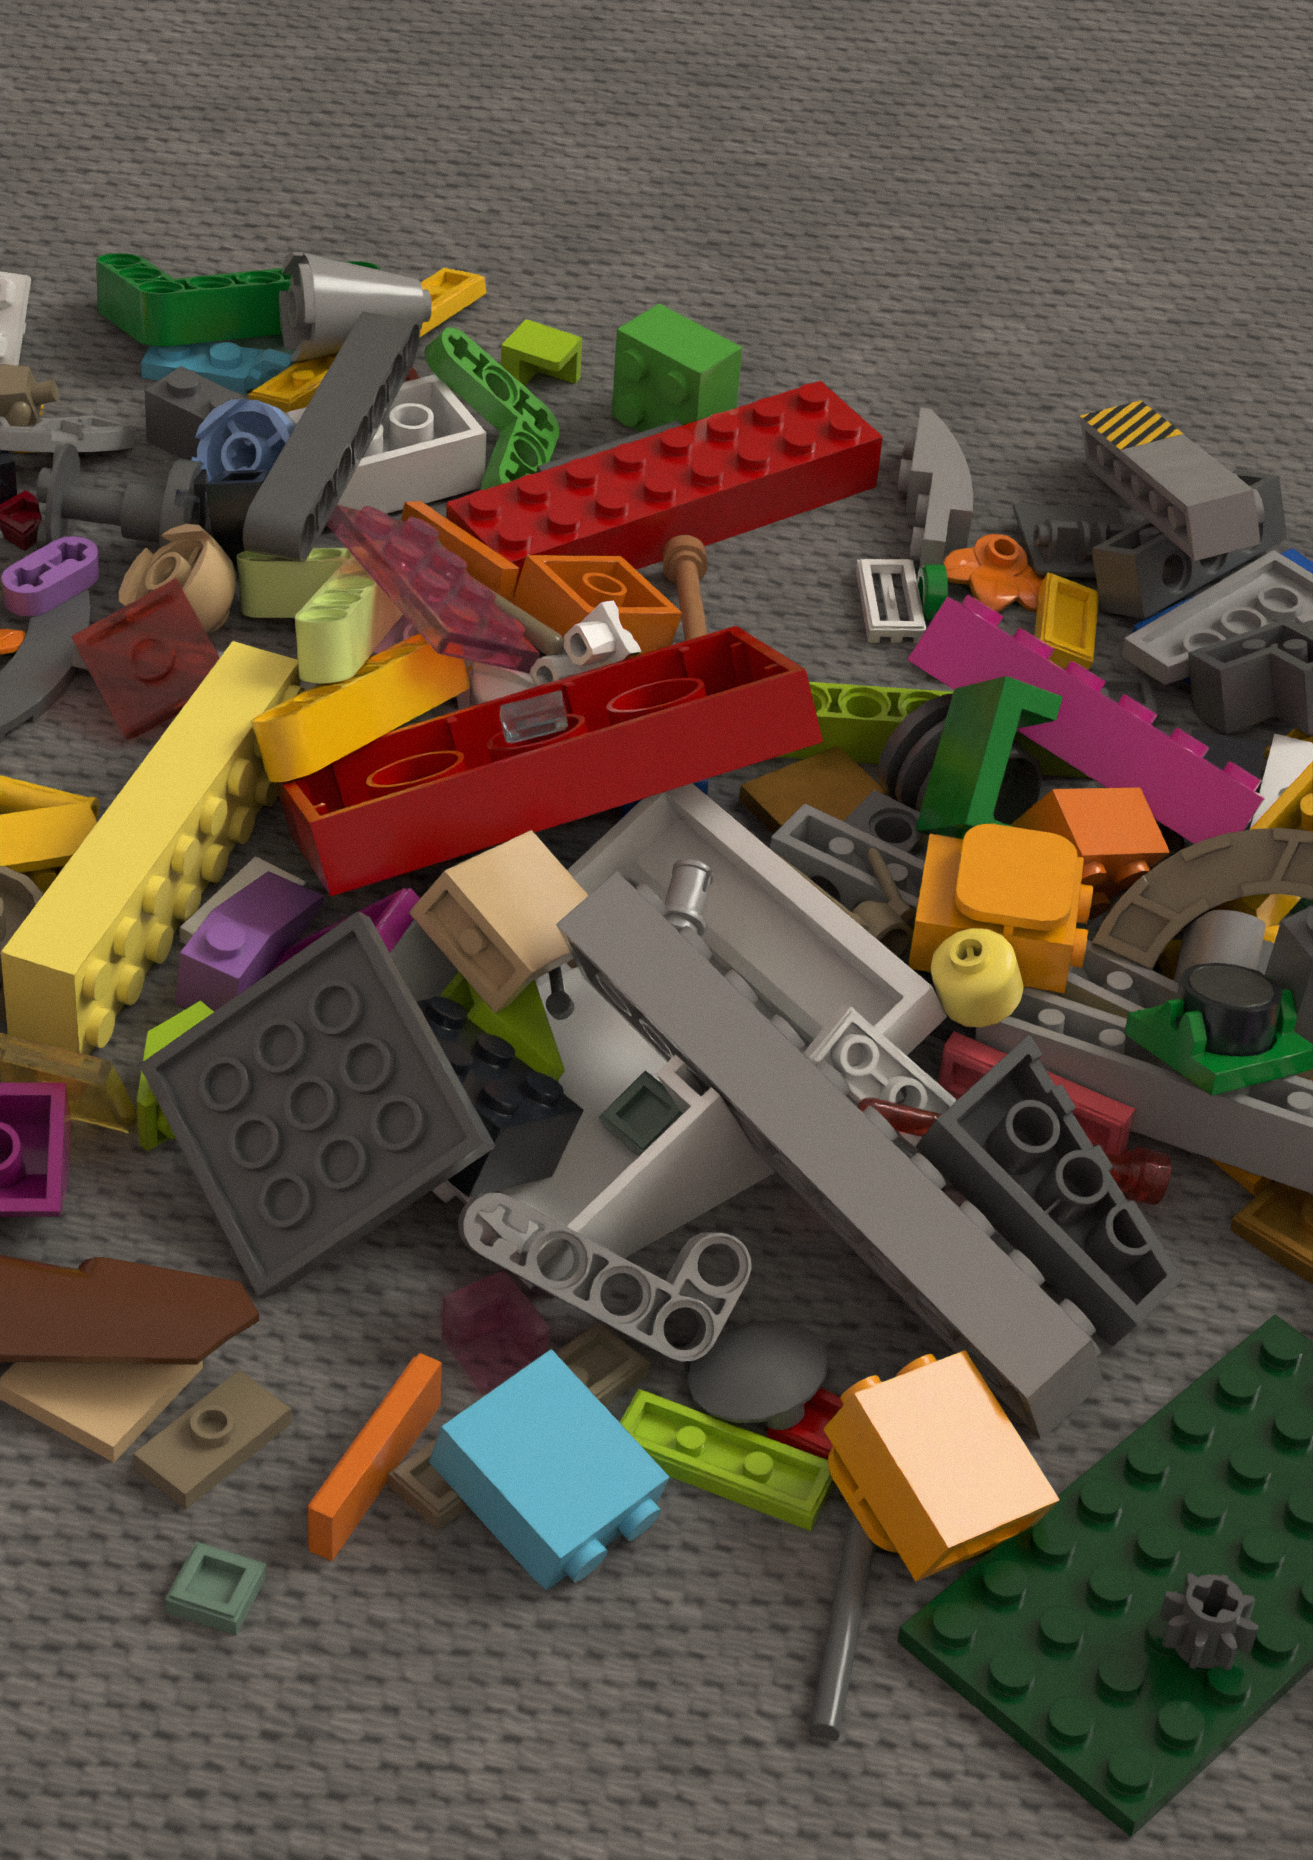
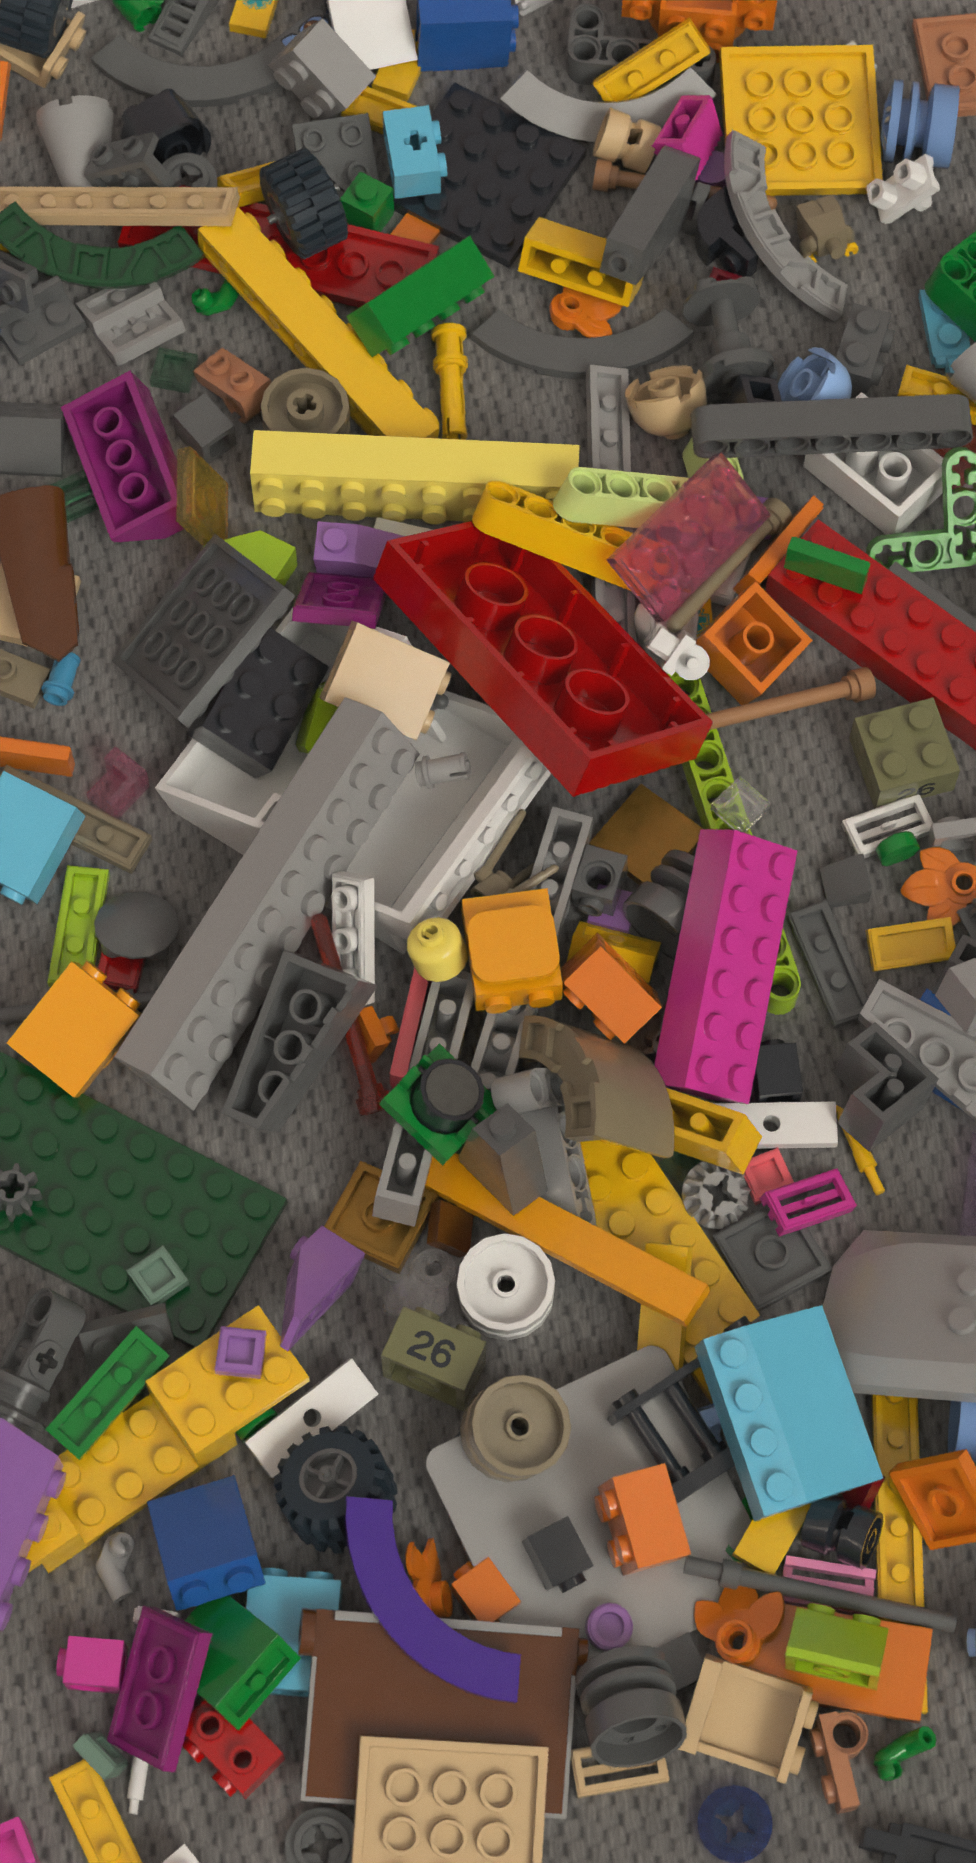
camera: 75 degrees right, 25 degrees up
(50, 576) = (655, 327): medium lavender beam -> none
(148, 658) = (588, 411): clear red tile -> none
(276, 1367) = (59, 685): none -> dark azure pin
(533, 717) = (546, 629): clear light blue tile -> none
(538, 488) = (827, 565): none -> green tile
(594, 1264) = (150, 819): light grey beam -> none
(805, 546) = (904, 752): none -> olive brick
(840, 676) = (740, 805): none -> clear tile
(977, 750) = (645, 896): green panel -> none

